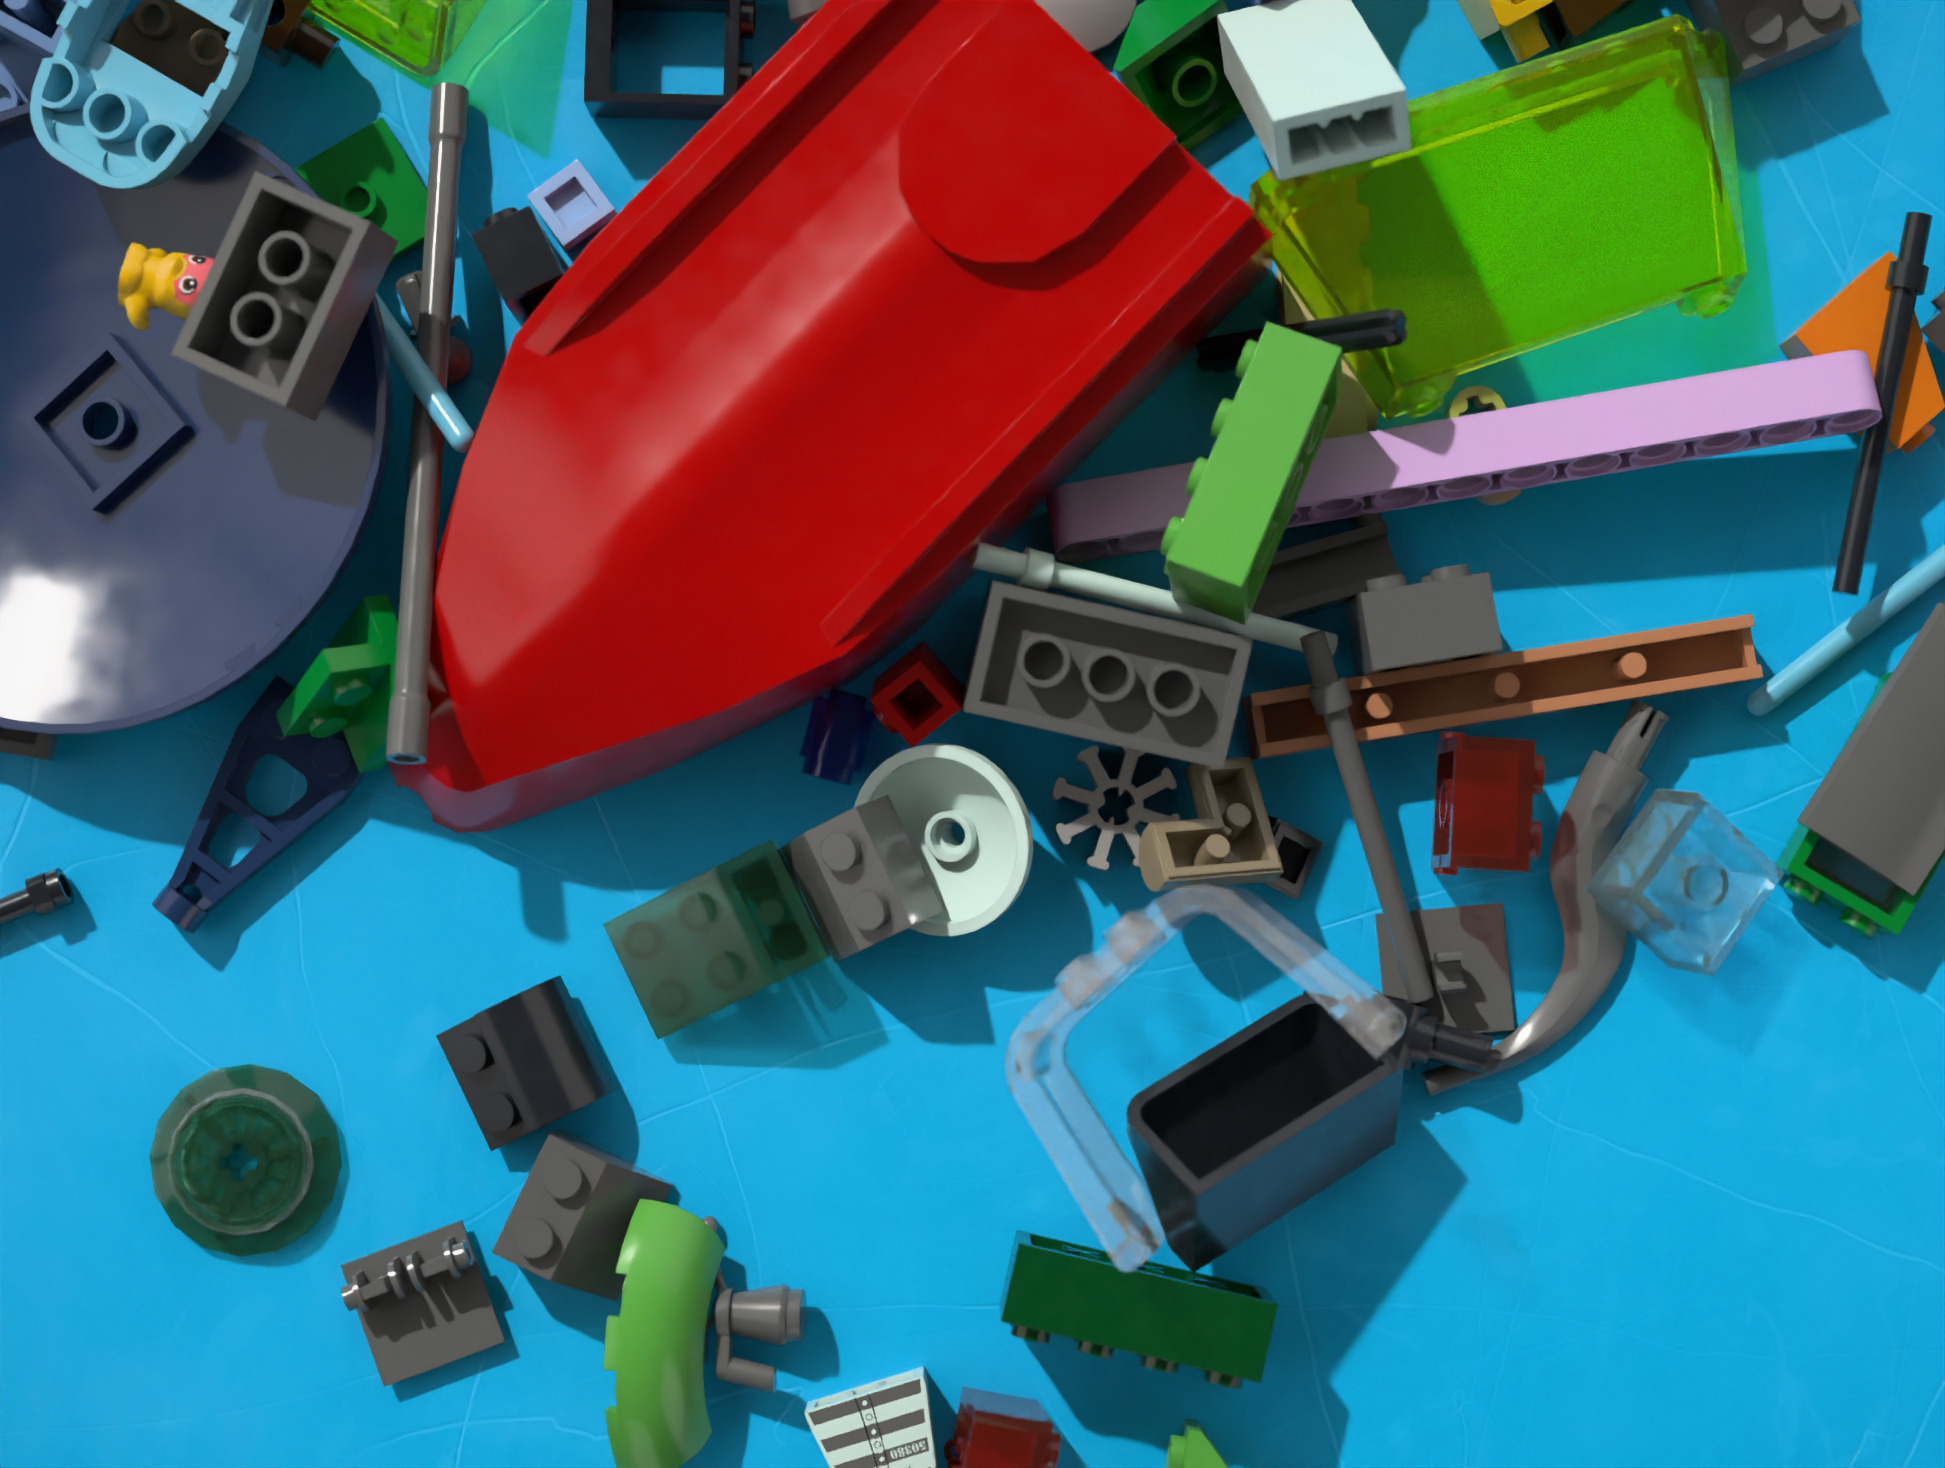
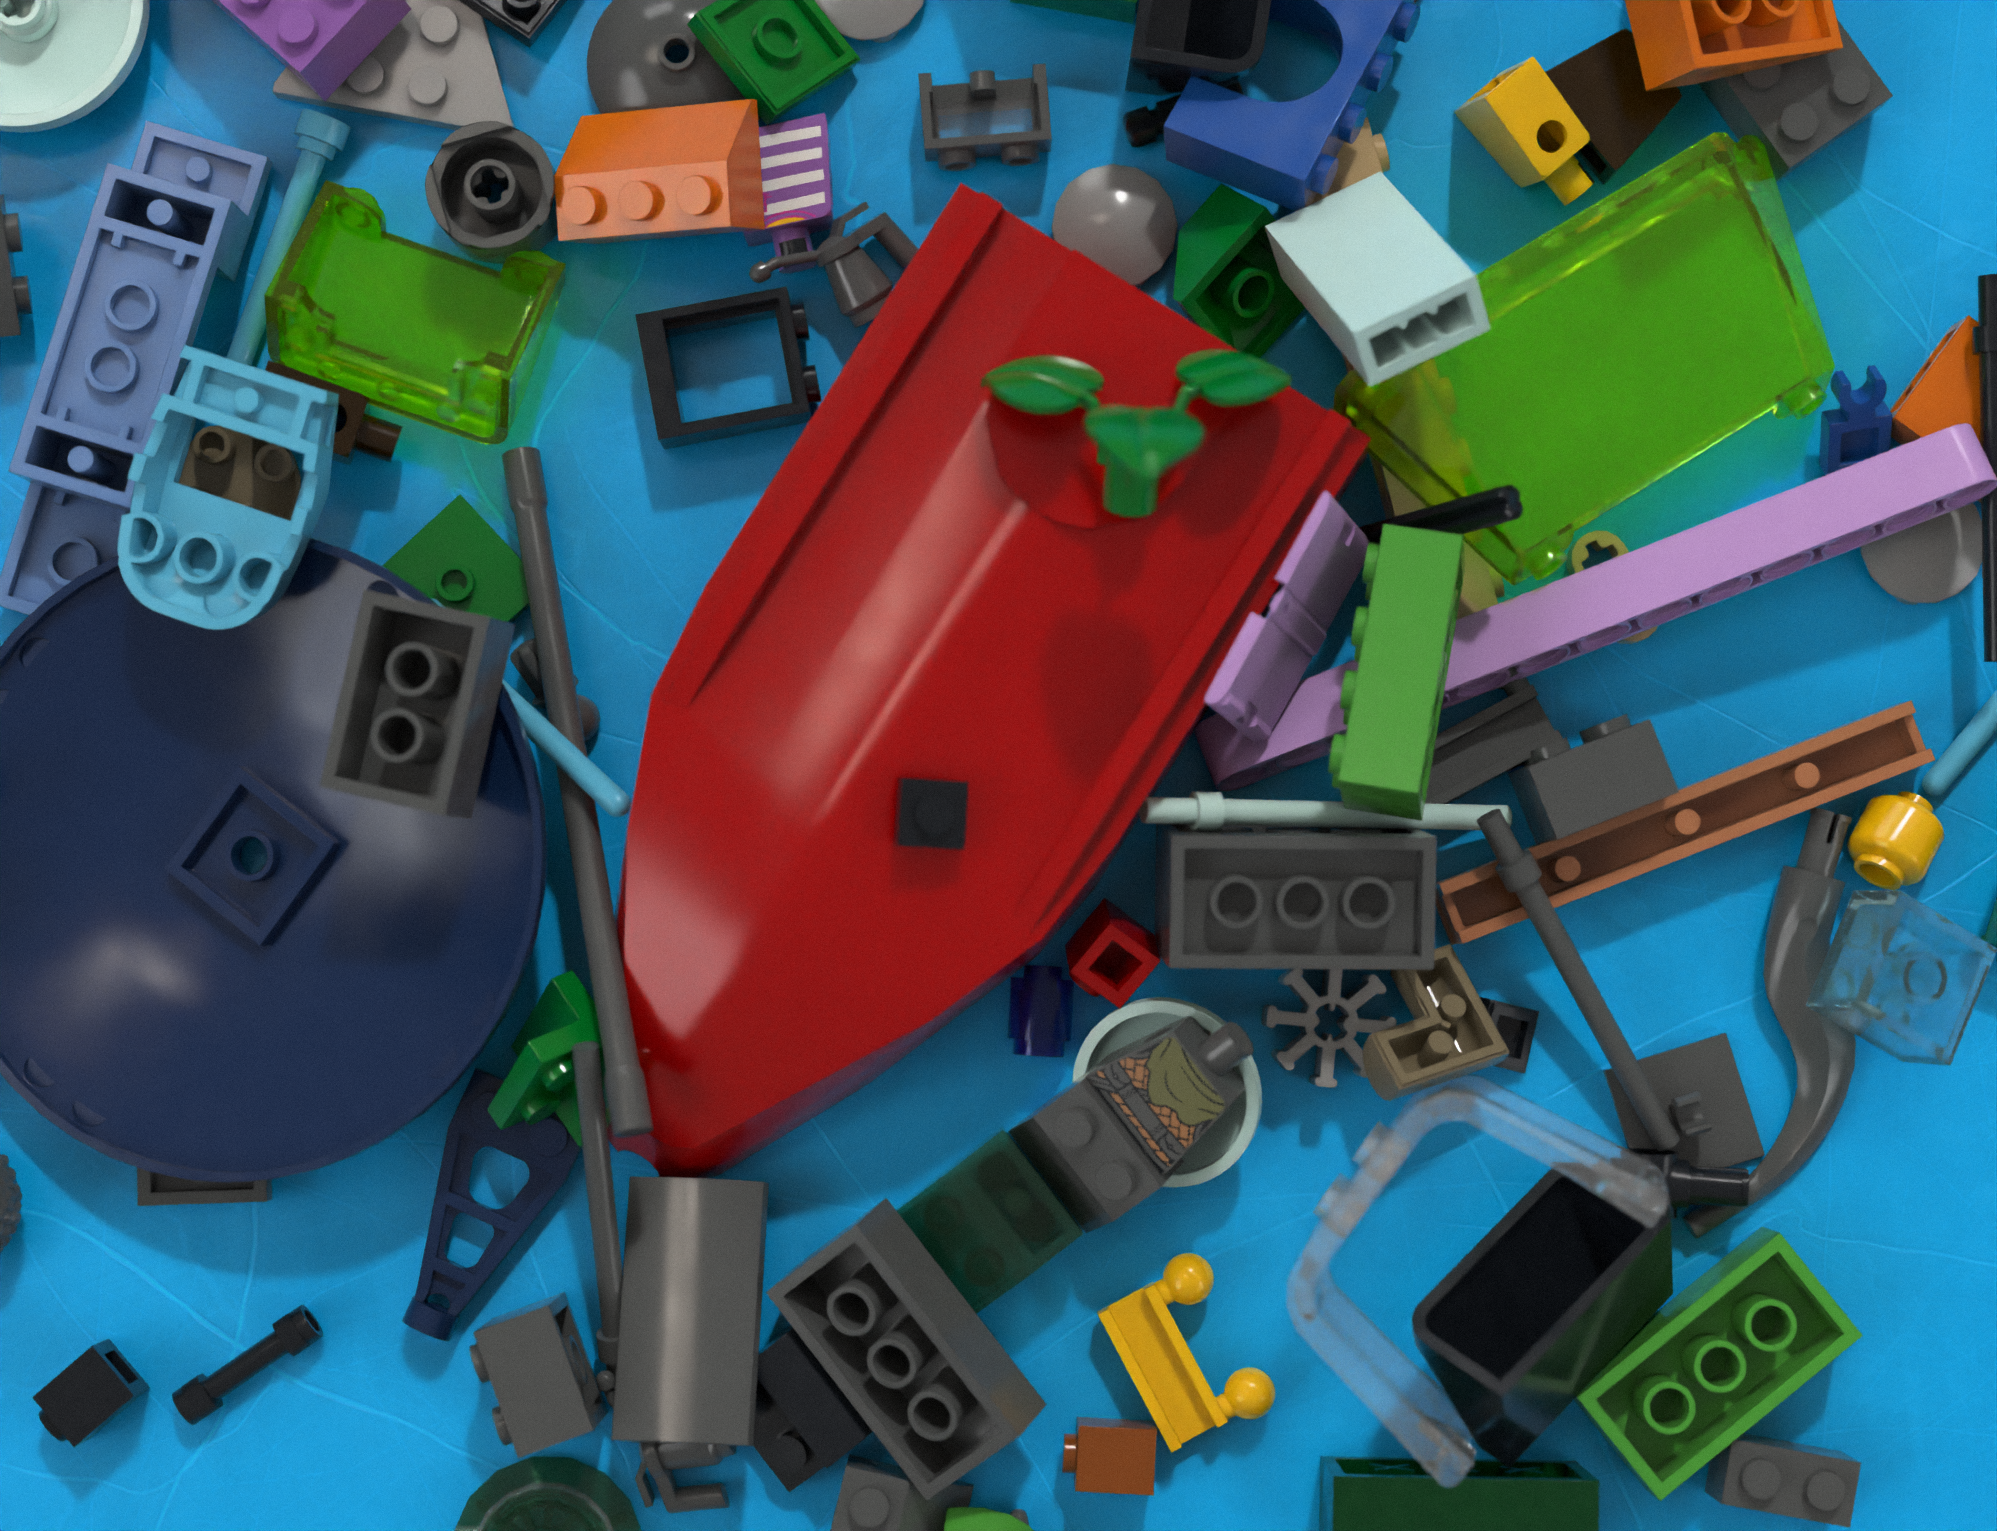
camera: 15 degrees left, 0 degrees up
(160, 281) = (292, 712): animal -> none
(269, 981) = (538, 1375): none -> dark grey brick
(355, 965) = (600, 1197): none -> dark grey bar
(406, 1080) = (664, 1458): none -> dark grey piece
(430, 952) = (690, 1311): none -> dark grey slope
(519, 259) = (635, 615): black brick -> none
(572, 204) = (665, 541): light blue plate -> none
(632, 1032) = (907, 1349): none -> dark grey brick
(760, 506) = (930, 813): none -> black plate
(811, 1183) = (1111, 1455): none -> dark orange brick
(882, 1104) = (1164, 1364): none -> yellow gear
(946, 832) = (1172, 1085): none -> torso
(1035, 173) = (1137, 441): none -> green plant
(1141, 423) = (1277, 650): none -> lavender piece
(1420, 1217) = (1715, 1361): none -> bright green brick
(1462, 1345) = (1785, 1479): none -> dark grey brick
(1485, 804) = (1691, 945): clear red brick -> none
(1708, 748) = (1895, 840): none -> yellow head
(1760, 334) = (1859, 426): none -> blue plate
(1799, 480) = (1928, 558): none -> light grey dish

